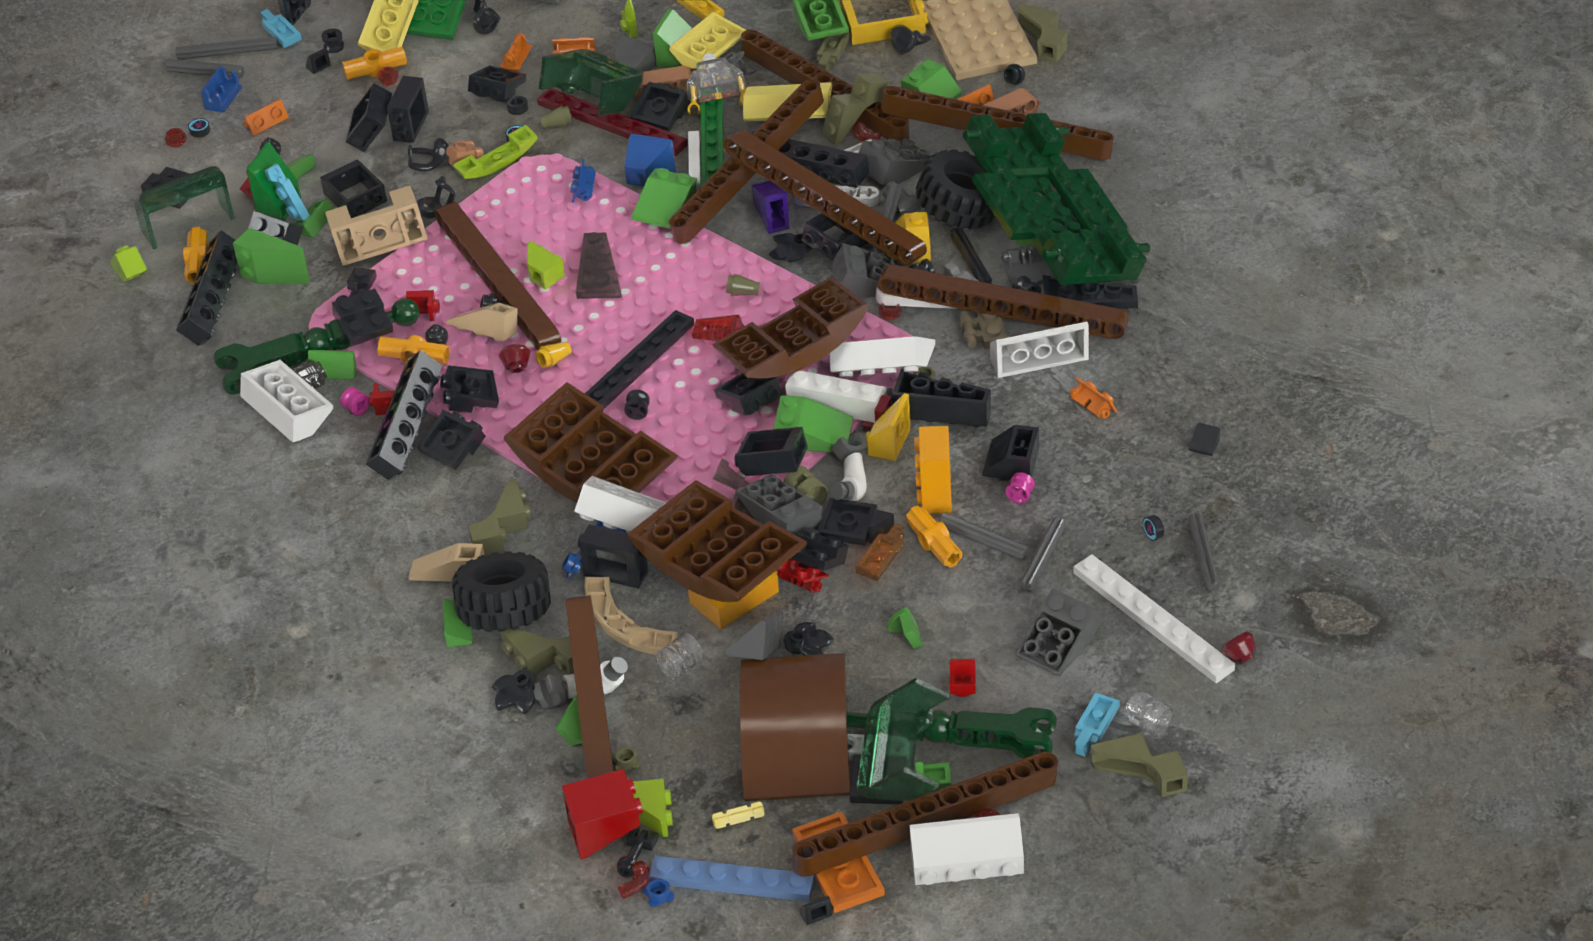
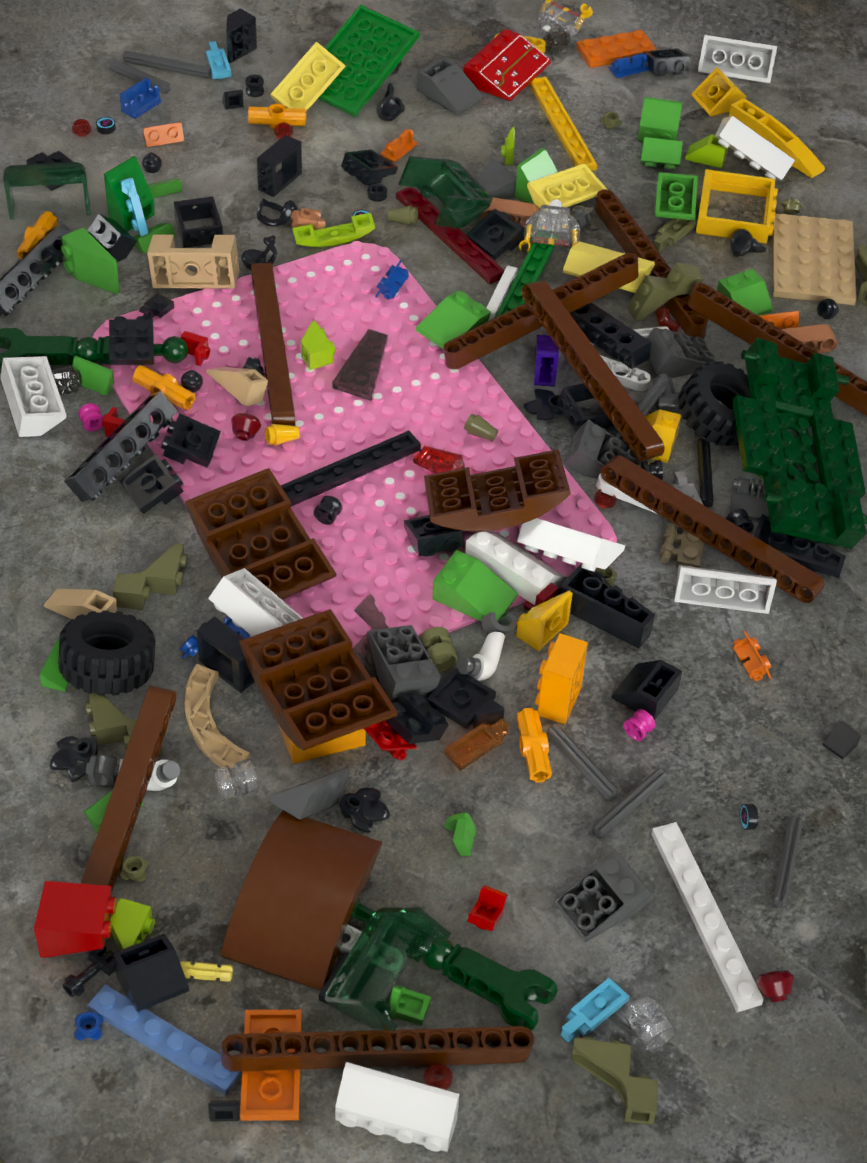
camera: 15 degrees right, 5 degrees up
(368, 117) = (241, 162): black window -> none
(564, 44) = (445, 152): orange hinge -> none
(638, 881) = (80, 1001): clear red arm -> none
(645, 155) = (459, 275): blue slope -> none
(692, 828) = (150, 972): none -> black slope
(771, 451) = (441, 601): black window -> none

